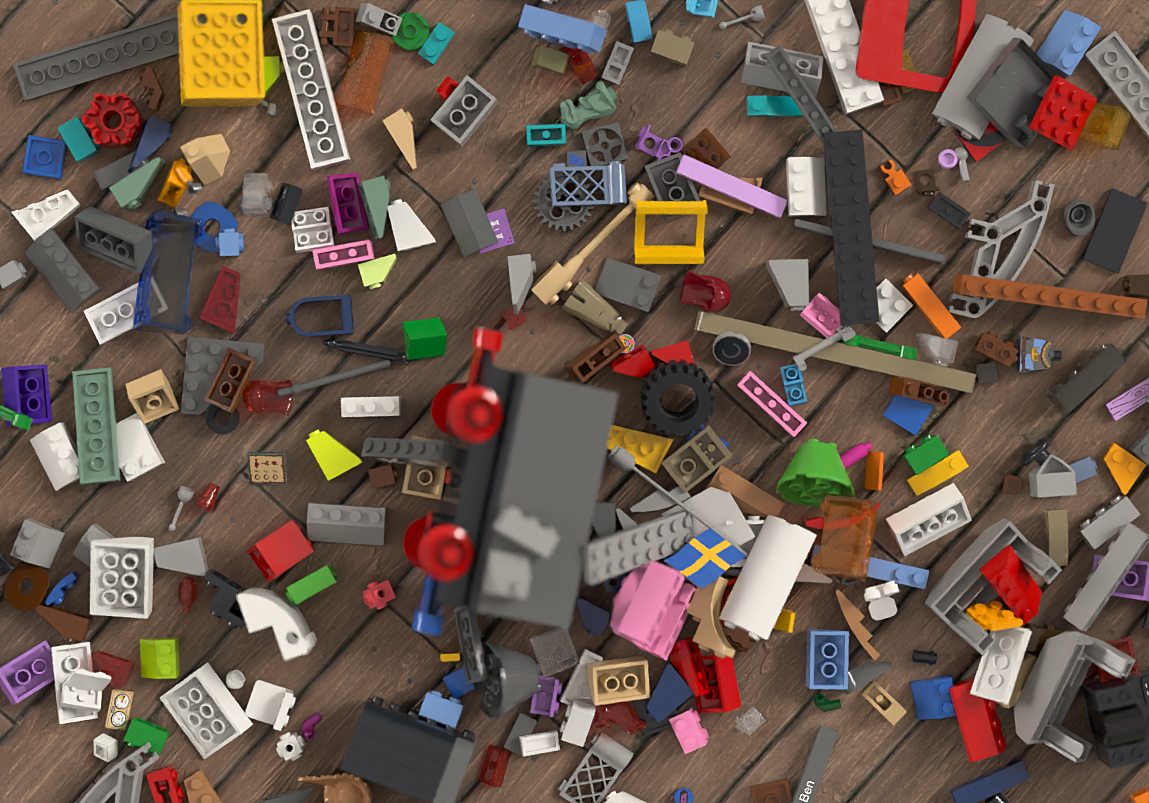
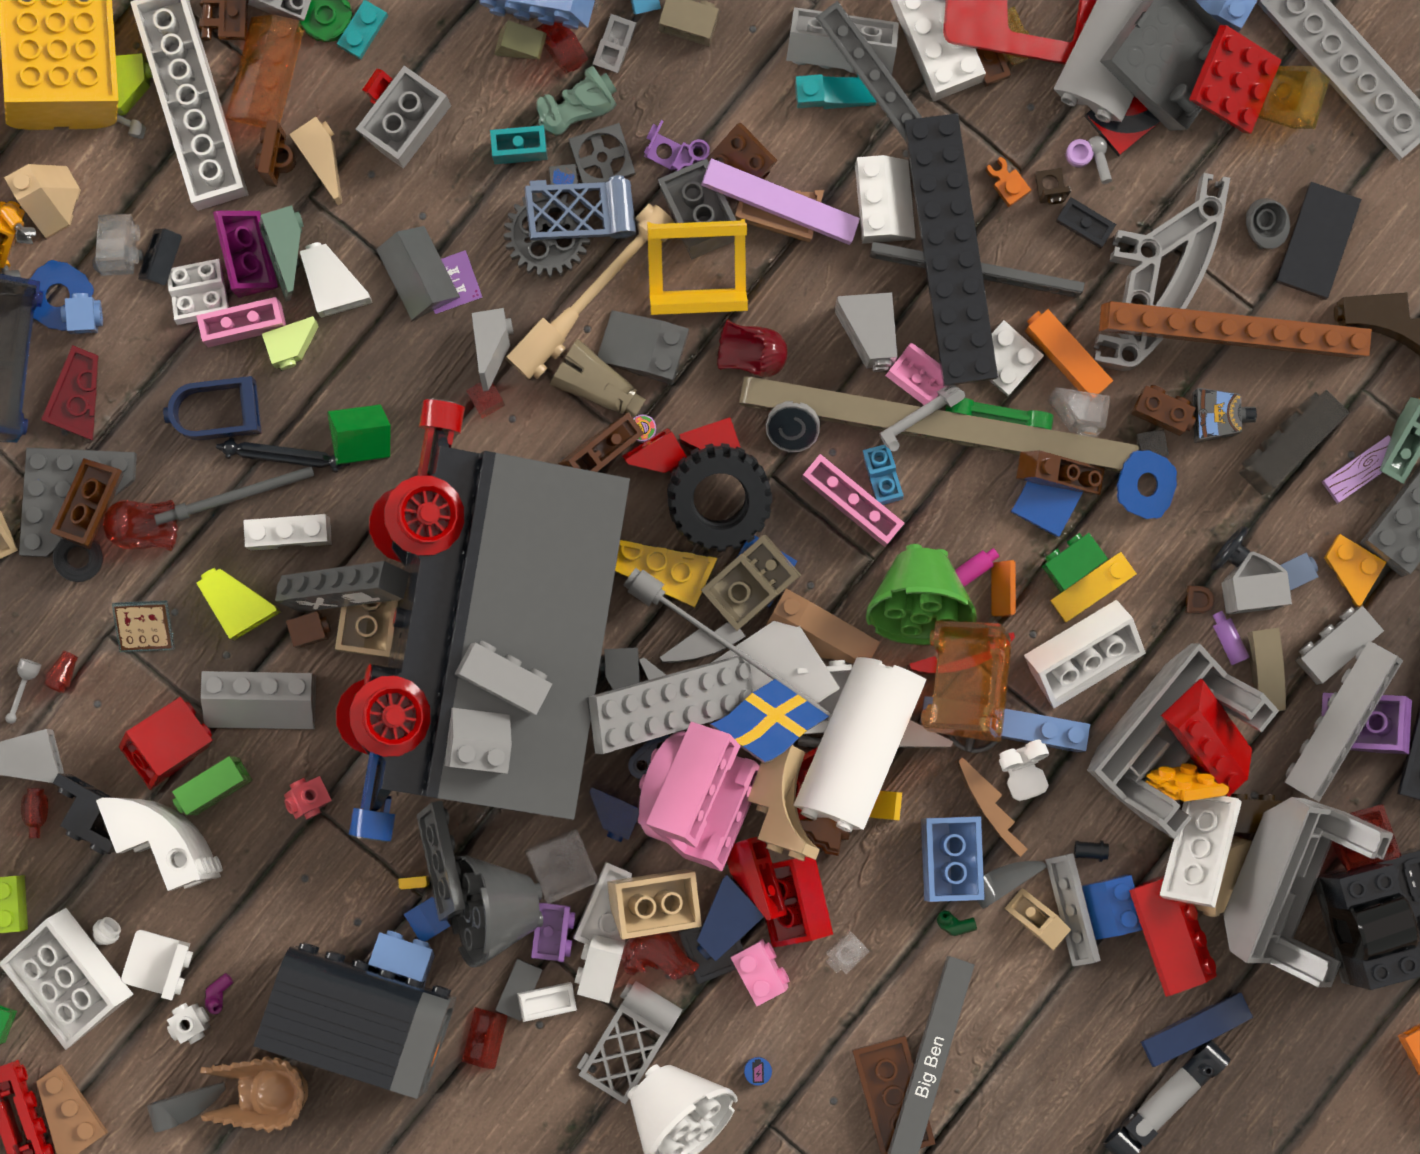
camera: 15 degrees left, 5 degrees down
(370, 126) = (273, 145): none -> reddish brown plate
(909, 697) = (1073, 909): none -> light grey plate
(966, 403) = (1128, 493): none -> blue piece
(1031, 513) = (1230, 638): none -> medium lavender cylinder

